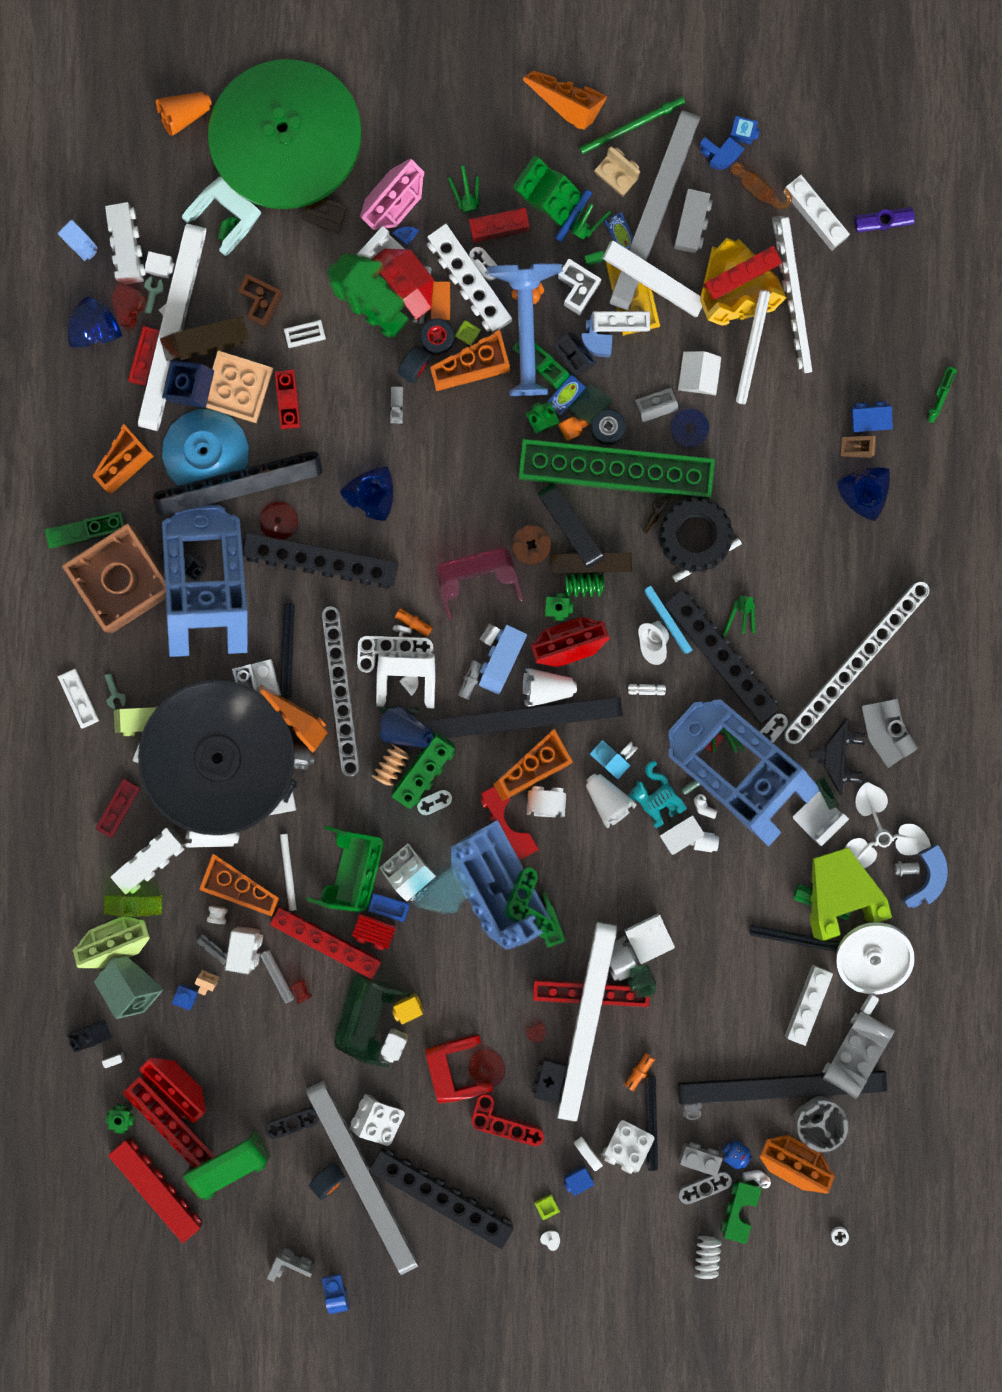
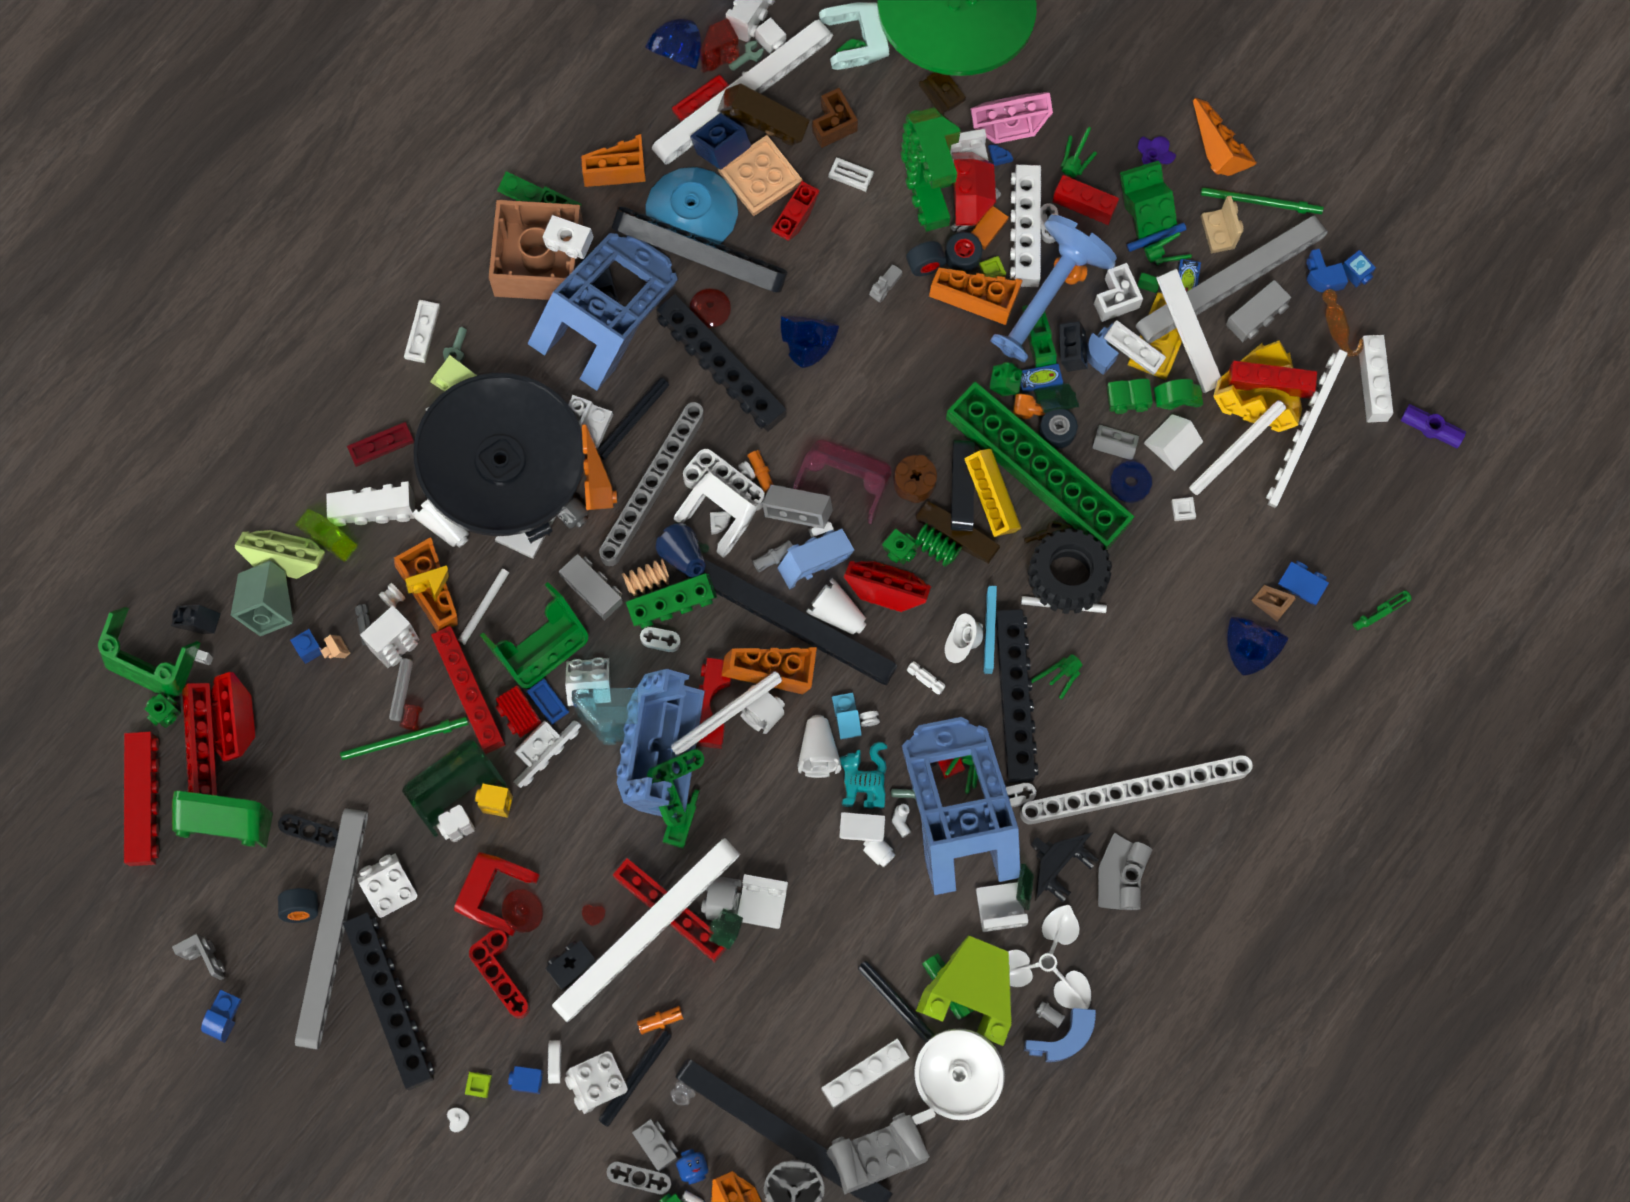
camera: 30 degrees right, 15 degrees down
(81, 1101) = (163, 679): none -> green windscreen
(129, 556) = (561, 228): none -> white brick
(243, 885) = (434, 579): none -> yellow slope
(329, 980) = (446, 727): none -> green bar
(355, 800) = (591, 586): none -> light grey brick
(410, 945) = (540, 747): none -> white bracket
(461, 631) = (797, 506): none -> light grey brick
(523, 141) = (1156, 150): none -> dark purple plate
(528, 828) = (726, 713): none -> white axle
(598, 516) = (993, 493): none -> yellow brick
(642, 361) = (1129, 395): none -> green brick
(679, 334) = (1178, 393): none -> green brick
(743, 421) = (1183, 509): none -> white tile

